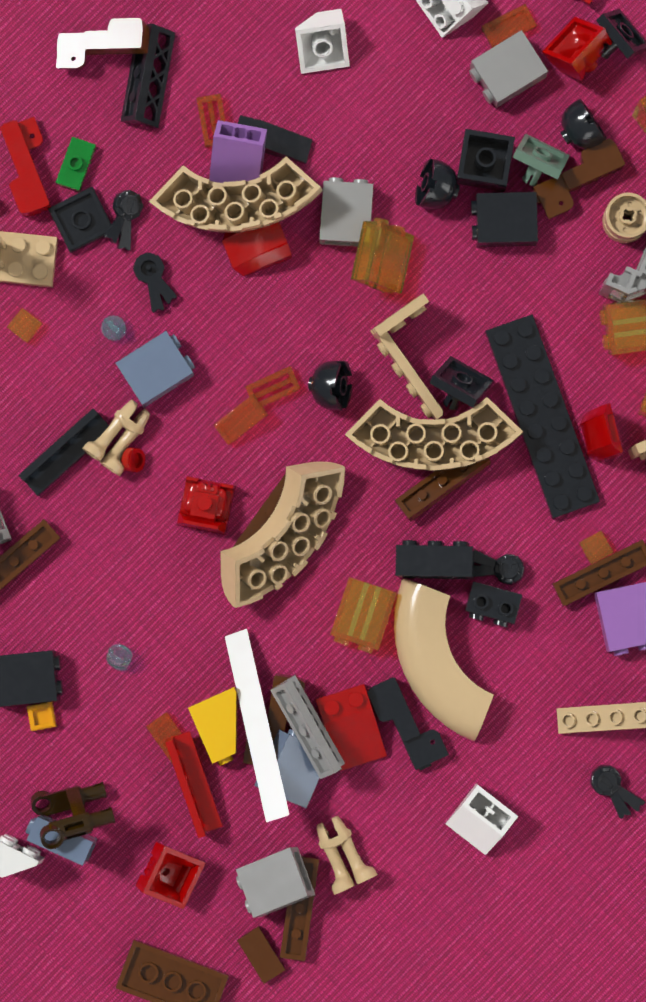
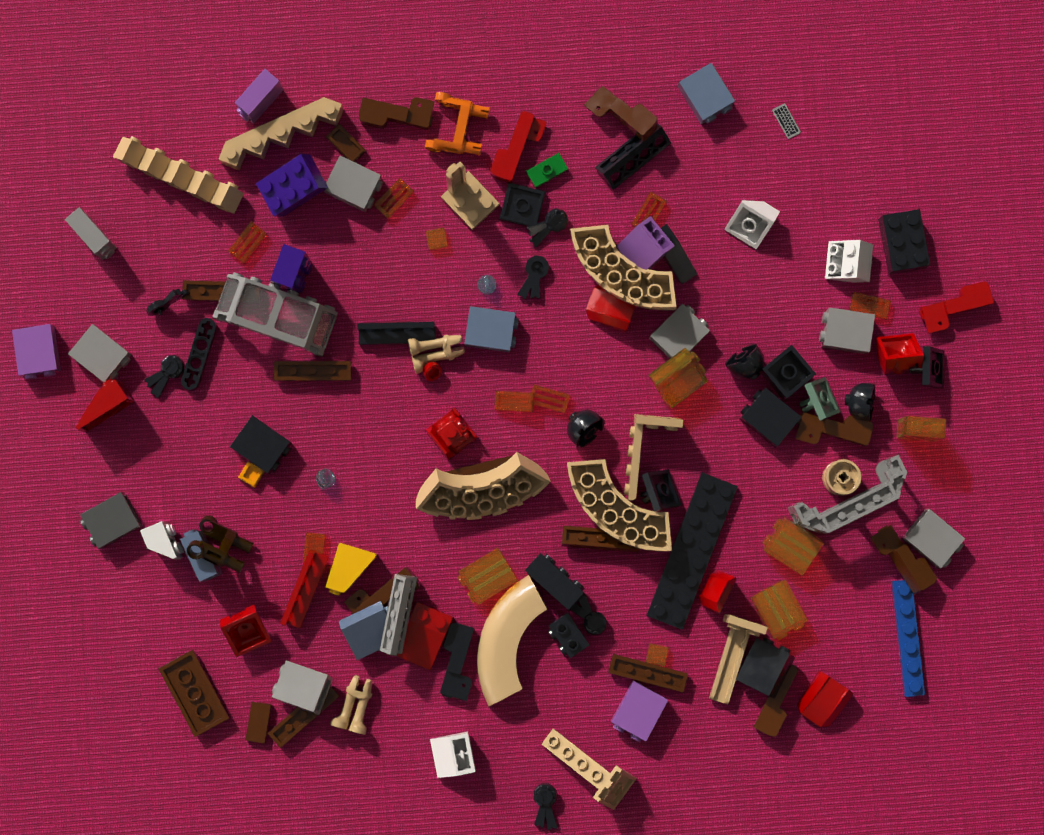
camera: 30 degrees right, 0 degrees up
(256, 726) = (369, 587): white sticker -> none

